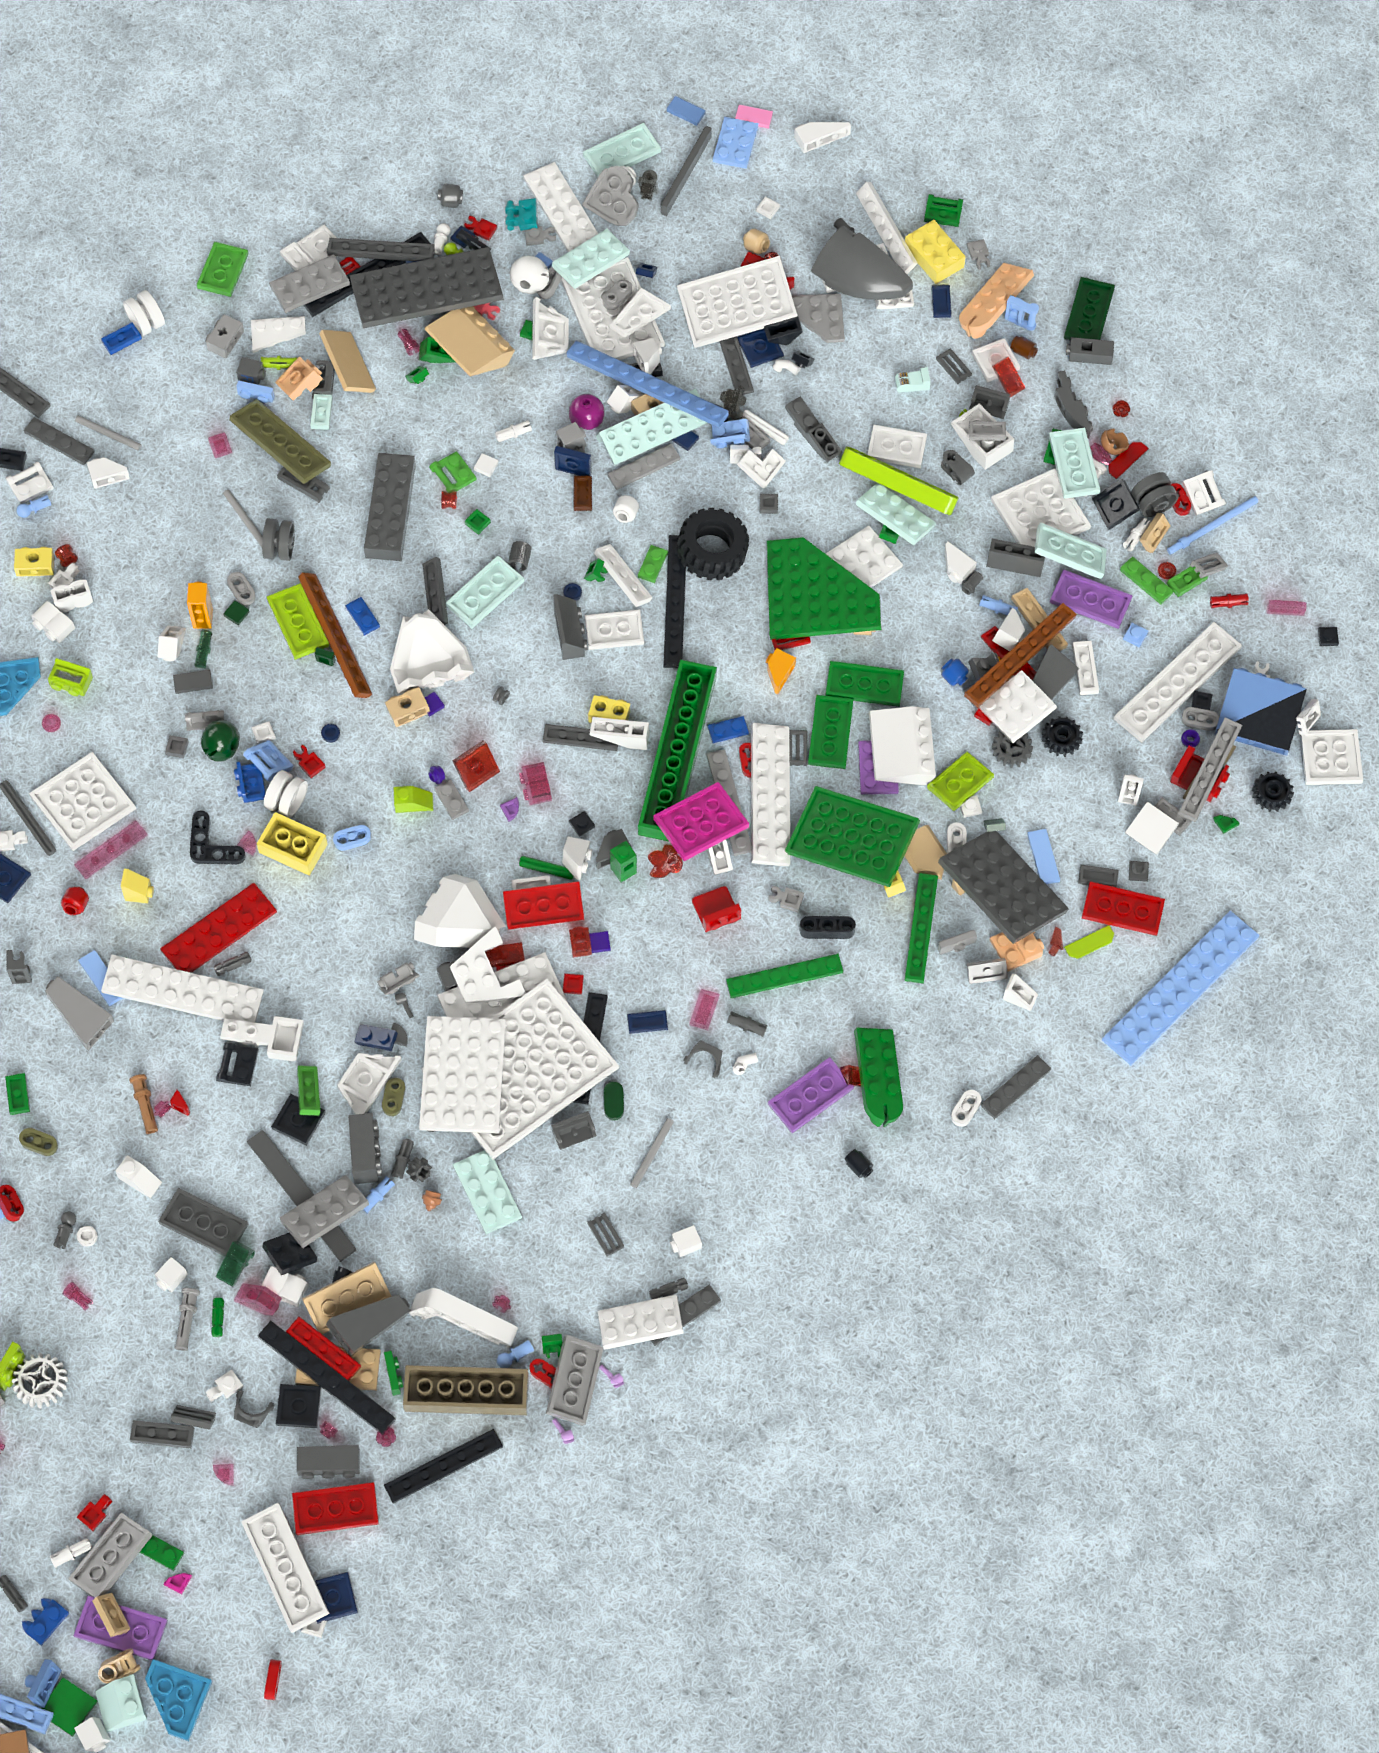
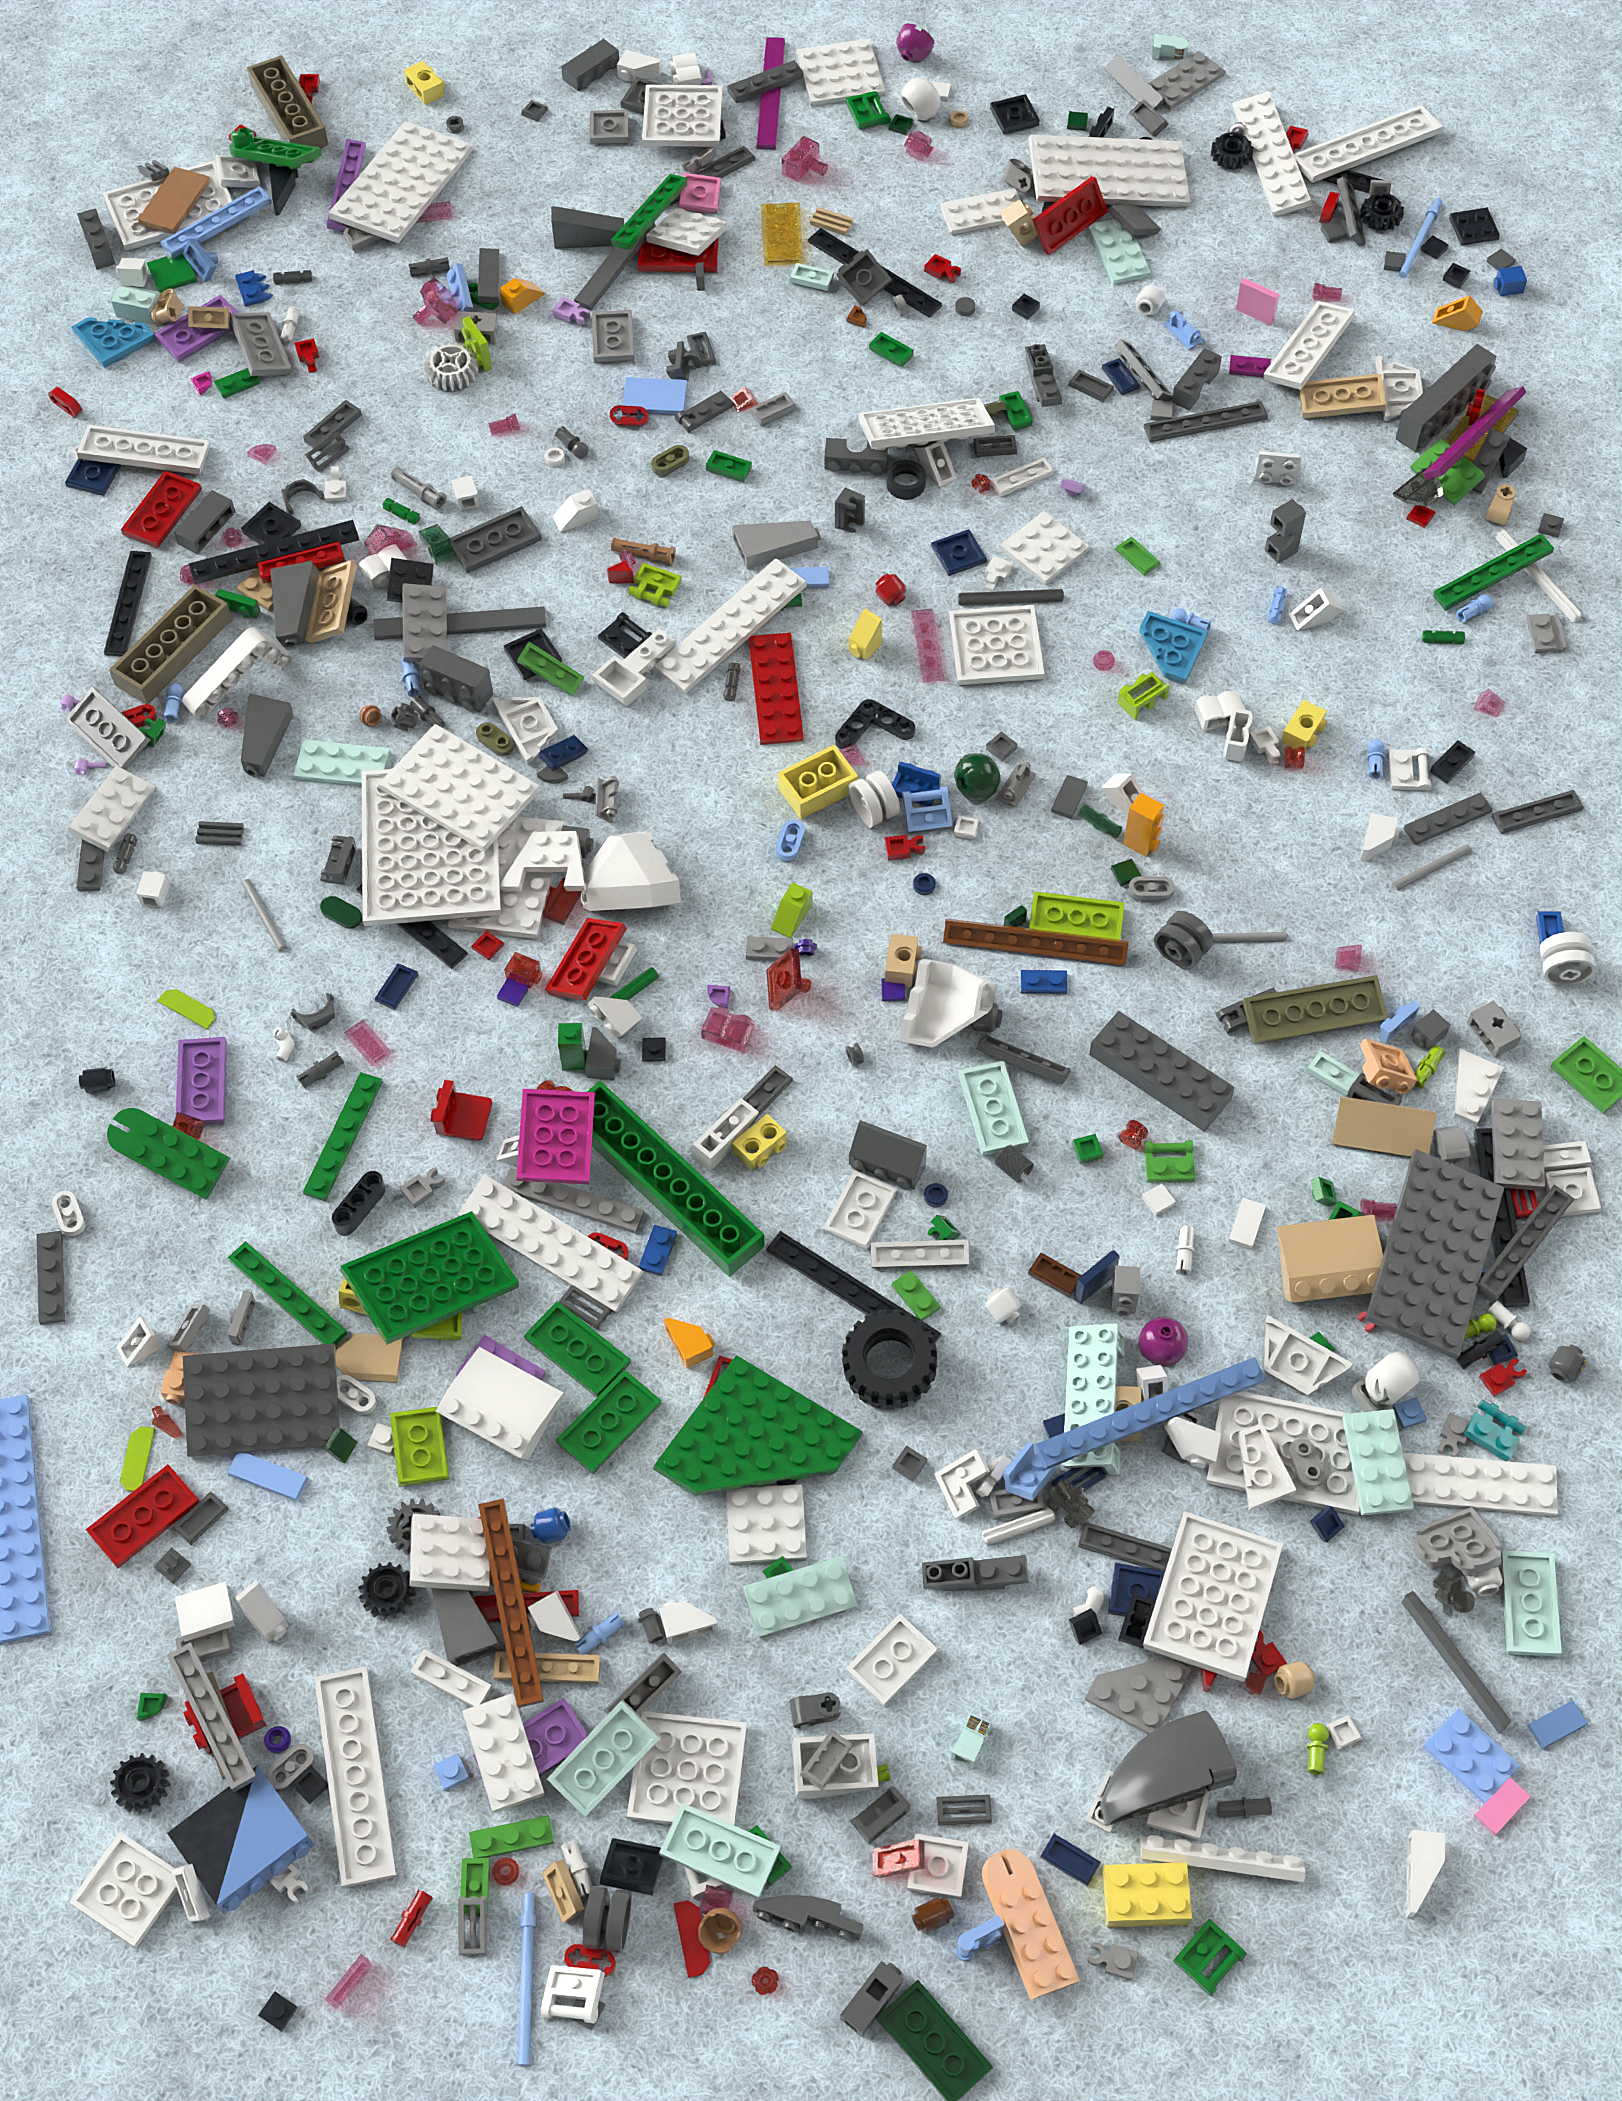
camera: 125 degrees right, 5 degrees down
(168, 1073) = (656, 579): none -> lime plate
(337, 316) = (1452, 1146): none -> light grey brick
(468, 408) = (1247, 1223): none -> white tile
(497, 1264) = (263, 732): none -> dark grey slope
(643, 466) = (1050, 1361): light grey plate -> none
(760, 1151) = (188, 1007): none -> lime piece
(779, 217) = (1318, 1735): none -> lime pin
(898, 480) = (875, 1605): lime beam -> none
(1106, 608) = (503, 1753): none -> white plate

